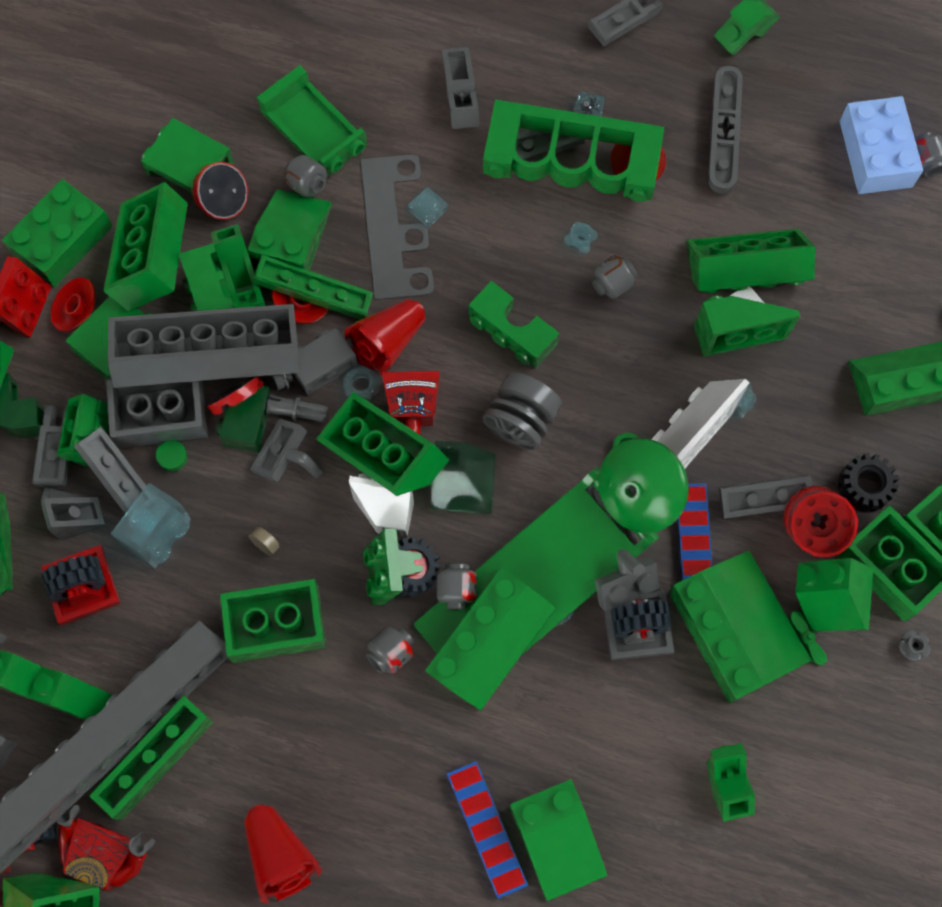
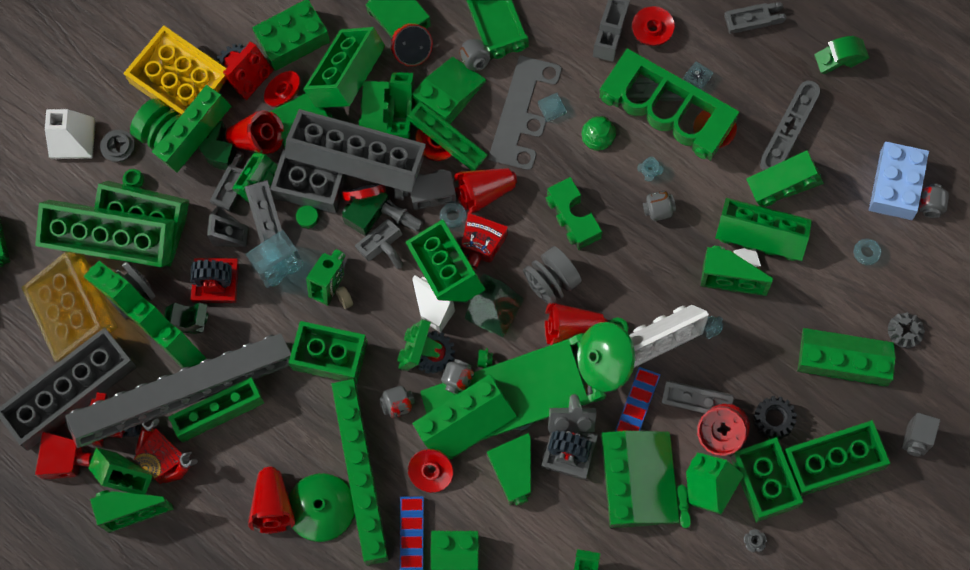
camera: 30 degrees right, 0 degrees up
(62, 370) = (257, 133): none -> red cone
(62, 650) = (187, 318): none -> dark green brick
(229, 523) = (325, 277): none -> green torso
(370, 834) = (332, 518): none -> green dish
(381, 764) = (360, 472): none -> green brick
(476, 734) = (428, 479): none -> red dish
(479, 549) = (484, 358): none -> green plate
(499, 218) = (598, 133): none -> green piece
(513, 58) = (656, 18): none -> red dish
(567, 463) = (568, 321): none -> red cone
(578, 677) = (513, 468): none -> green slope
(750, 190) = (785, 179): none -> green wedge
(885, 233) = (872, 245): none -> clear light blue piece

